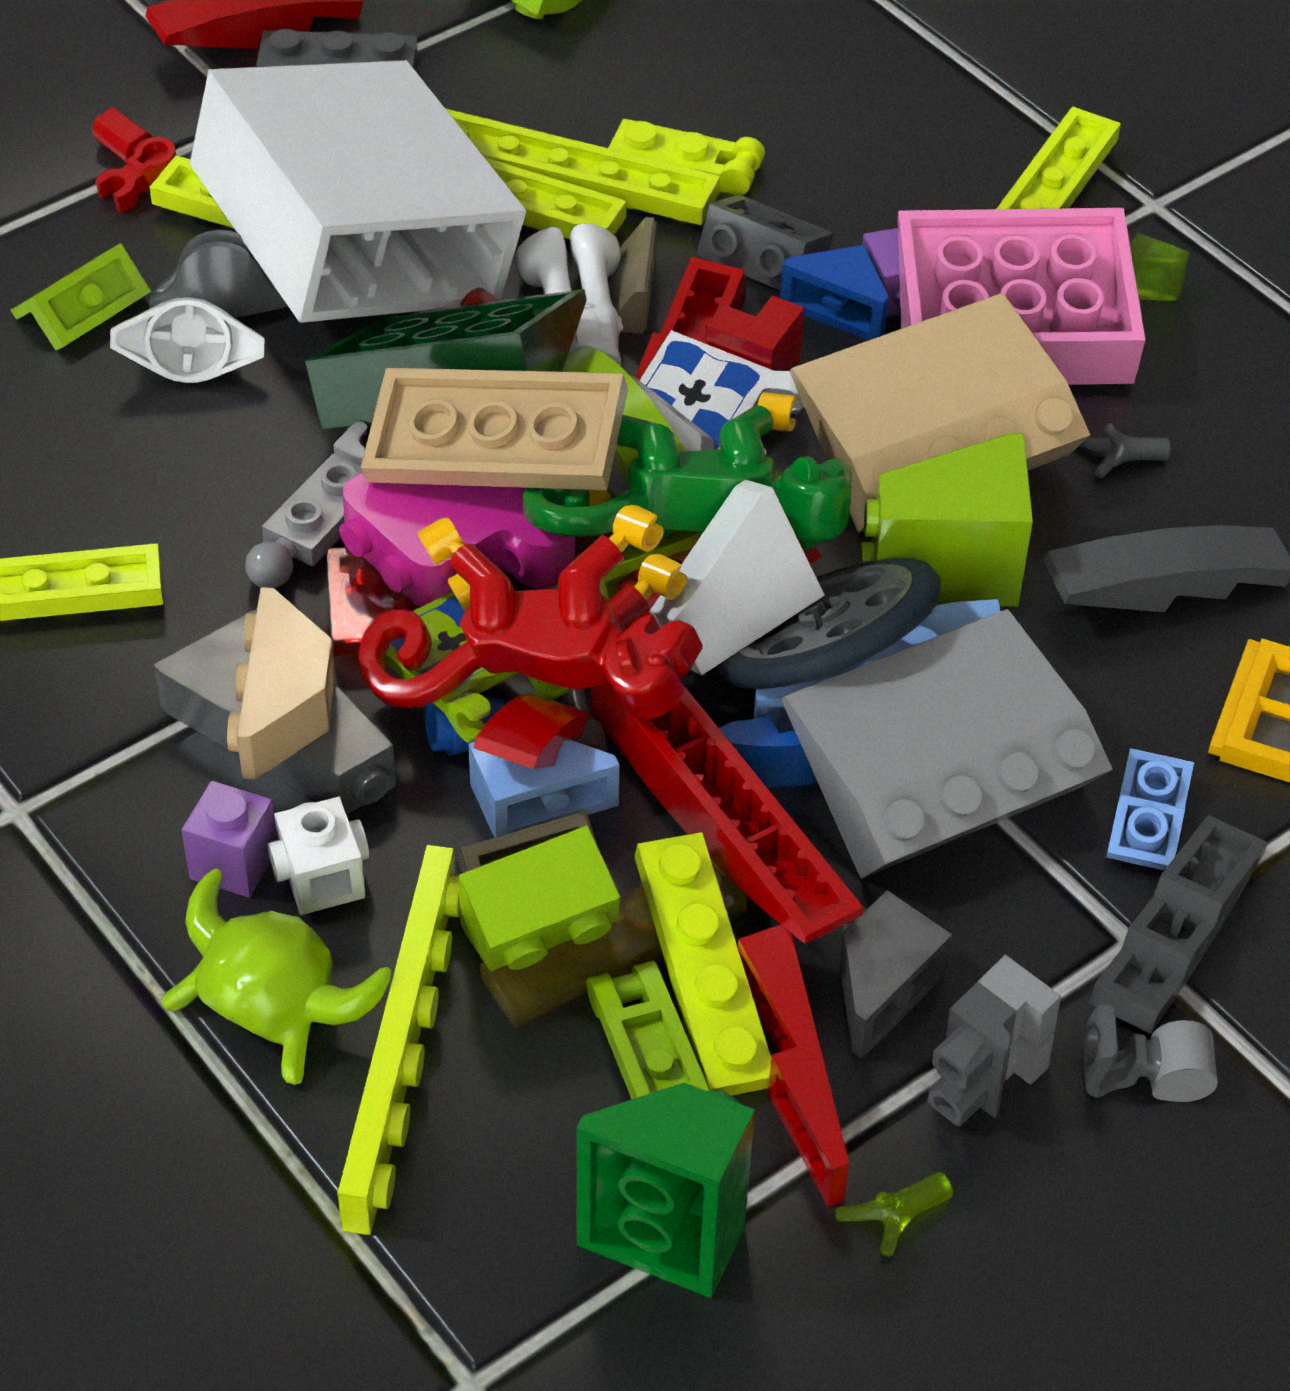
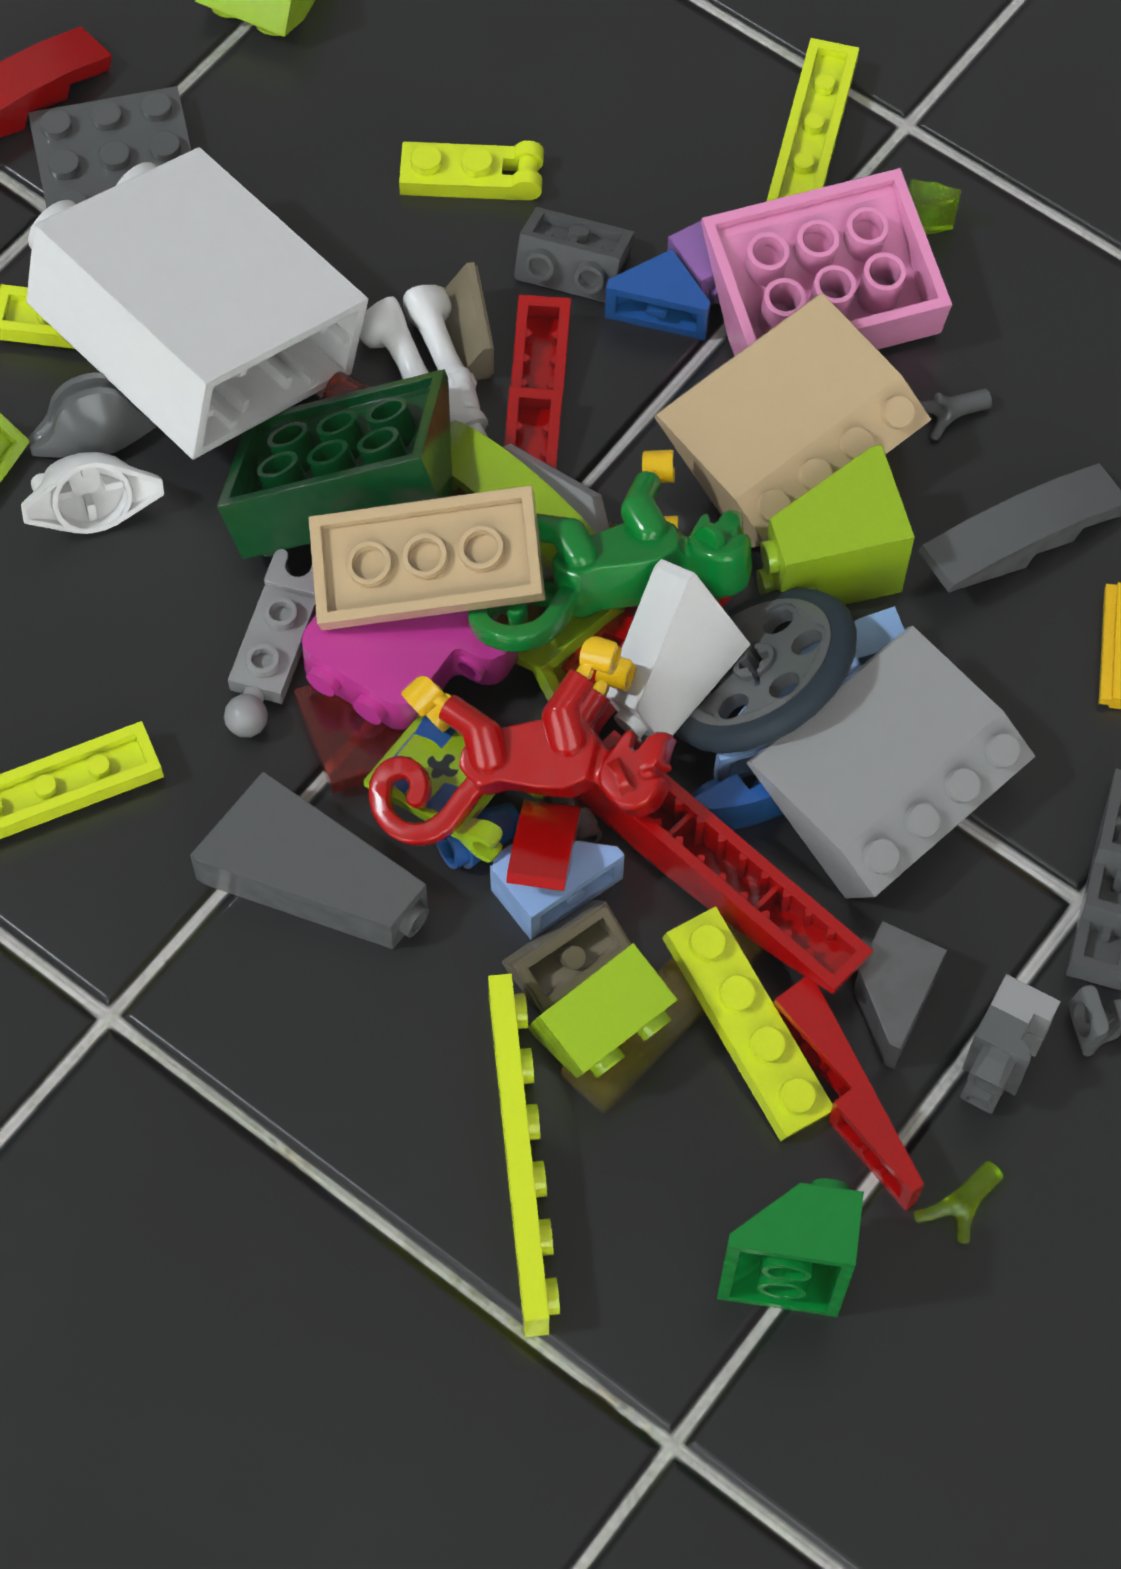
camera: 15 degrees left, 15 degrees up
(230, 834) = (313, 1005): medium lavender brick -> none
(267, 976) = (392, 1132): lime piece -> none
(282, 687) = (318, 853): tan slope -> none
(319, 854) = (395, 1002): white brick -> none
(560, 203) = (372, 256): neon yellow plate -> none
(641, 181) = (385, 208): neon yellow plate -> none
(644, 1036) = (727, 1111): lime plate -> none
(711, 383) = (582, 436): white flag -> none
(765, 339) = (606, 385): red piece -> none
(1150, 809) = (1067, 776): light blue slope -> none

